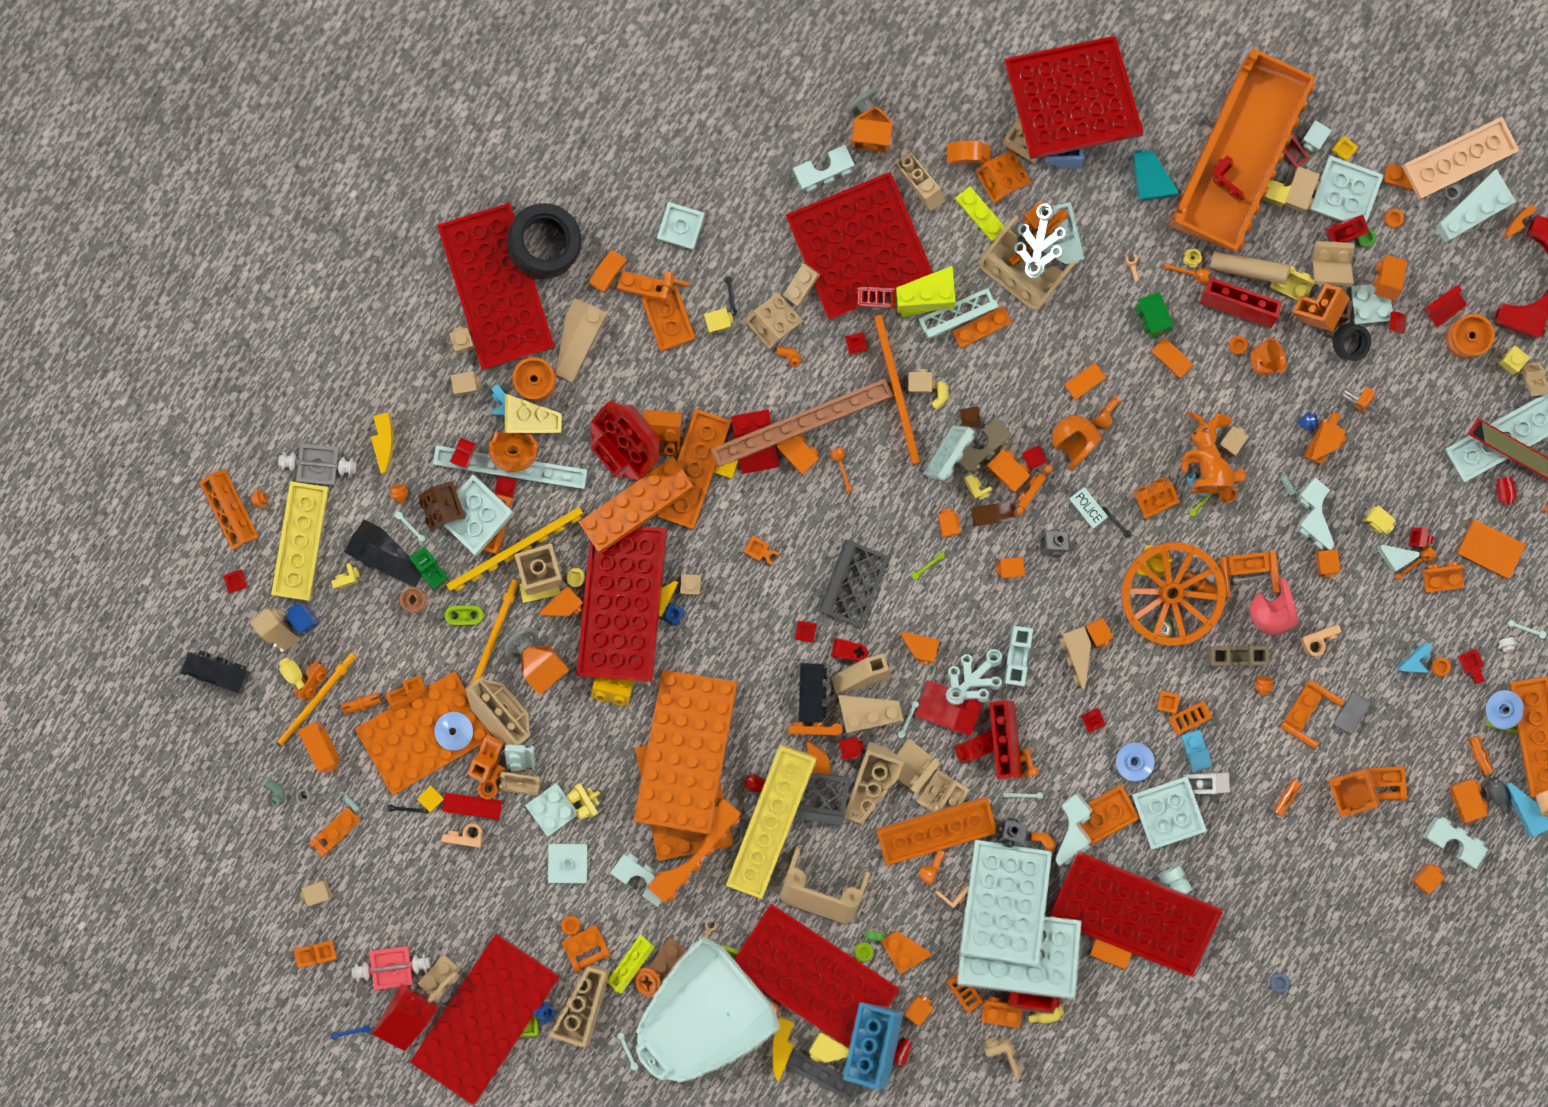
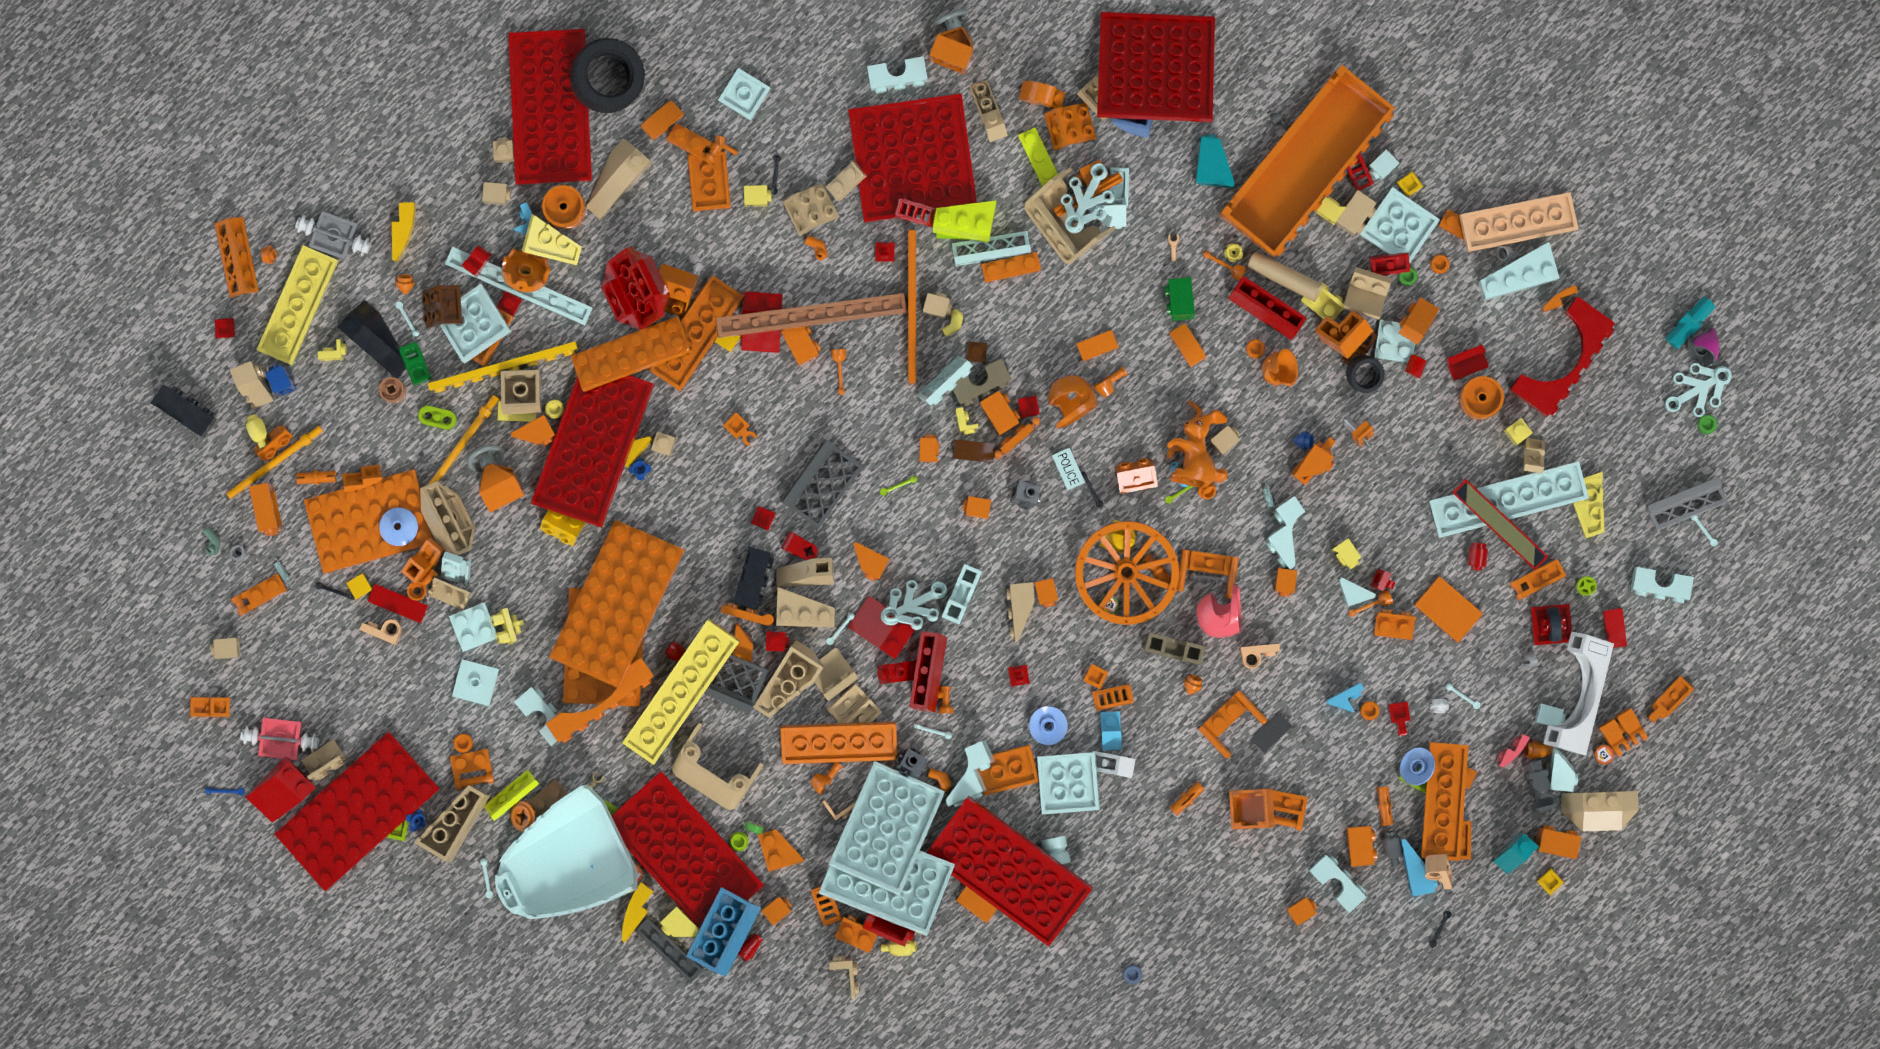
camera: 15 degrees right, 0 degrees up
(1221, 169) = (1284, 172): red bracket -> none

